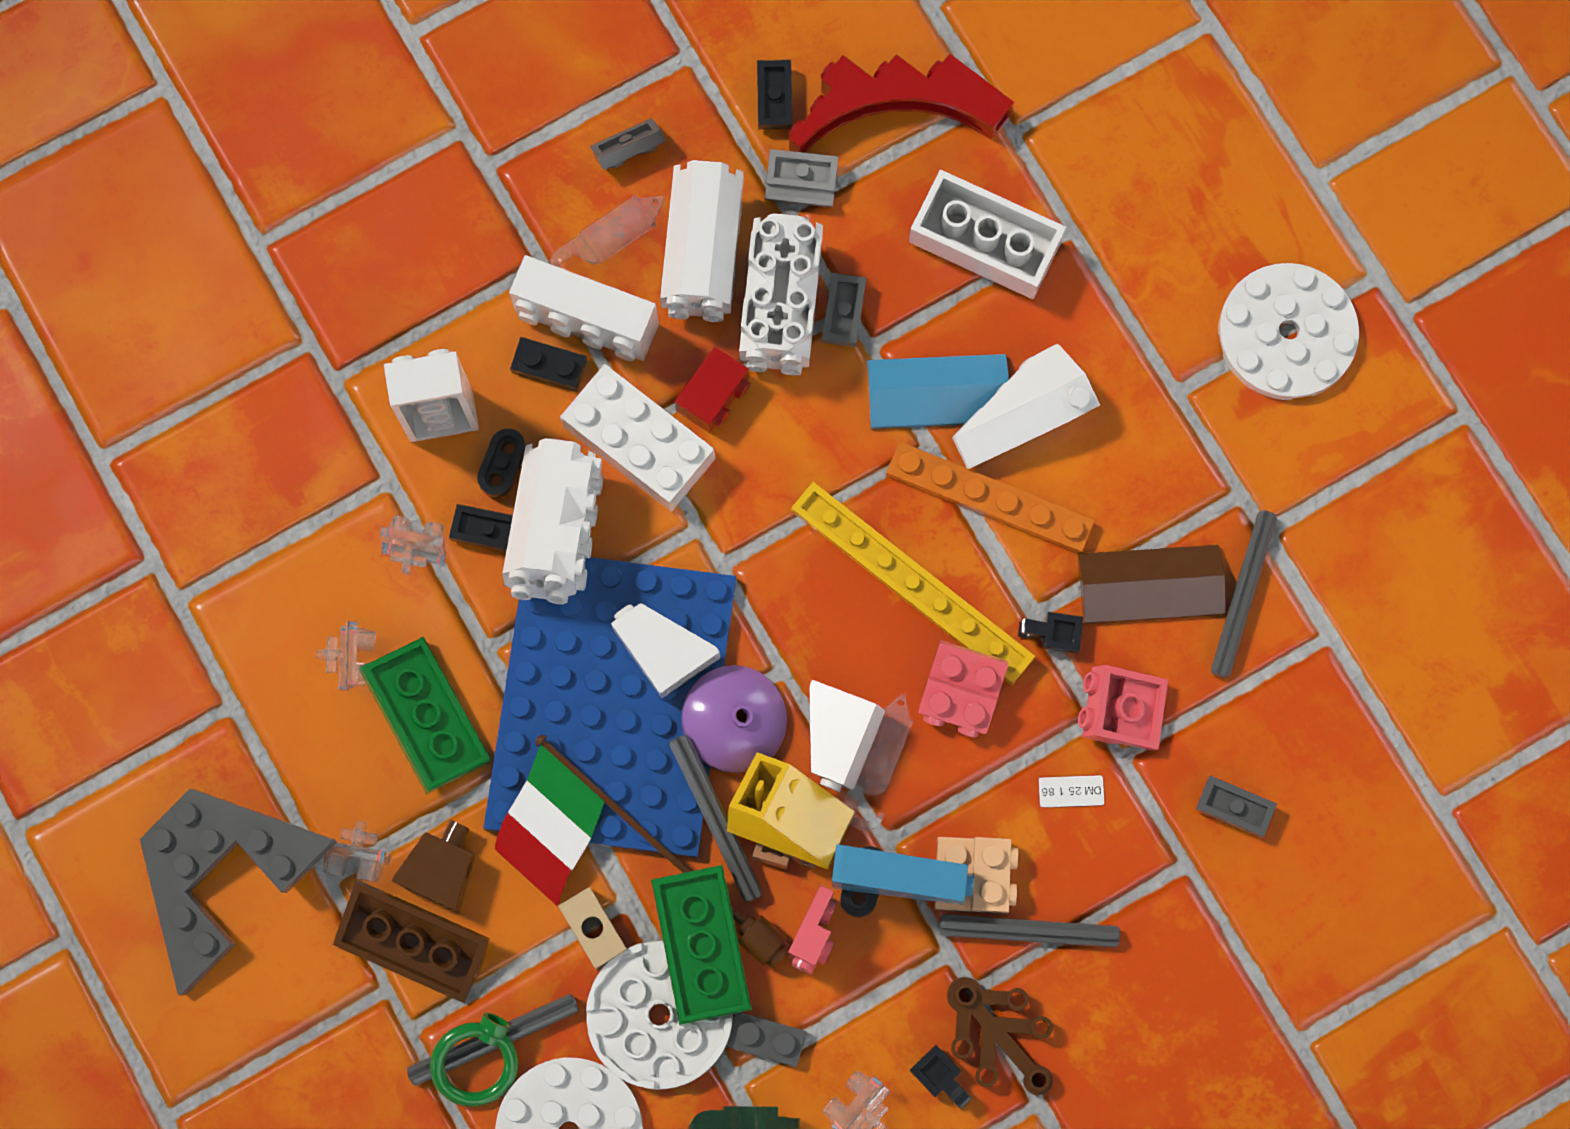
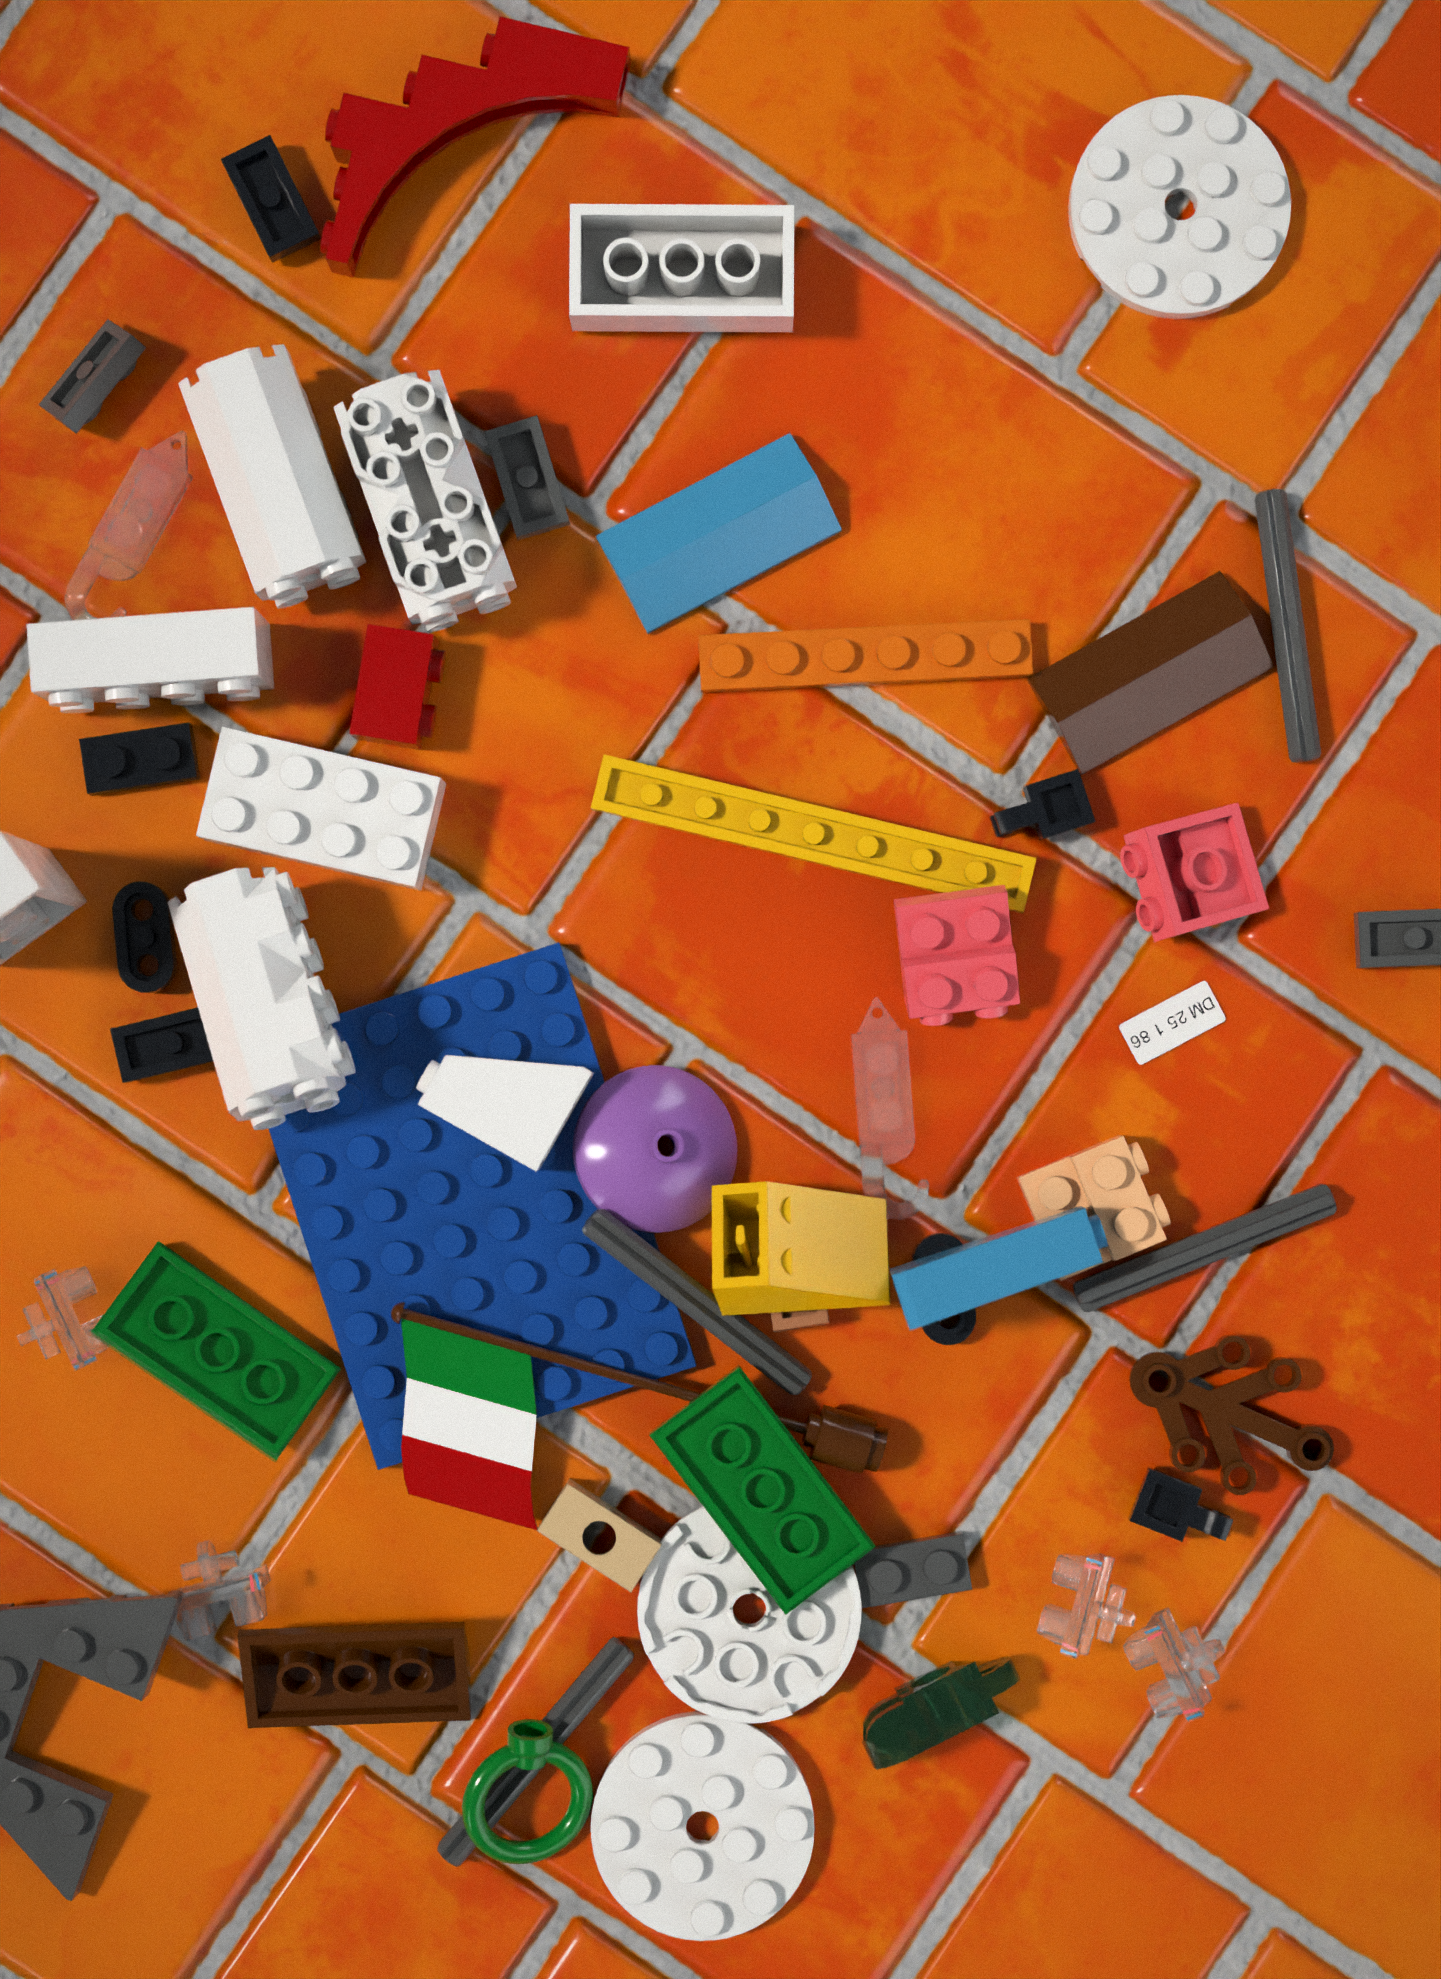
camera: 25 degrees left, 10 degrees up
(411, 547) = (79, 1123): clear hips -> none
(438, 867) = (343, 1555): reddish brown torso -> none
(801, 178) = (371, 308): light grey plate -> none
(812, 941) = (913, 1411): coral plate -> none
(840, 734) = (816, 1102): white slope -> none
(1036, 399) = (868, 485): white wedge -> none

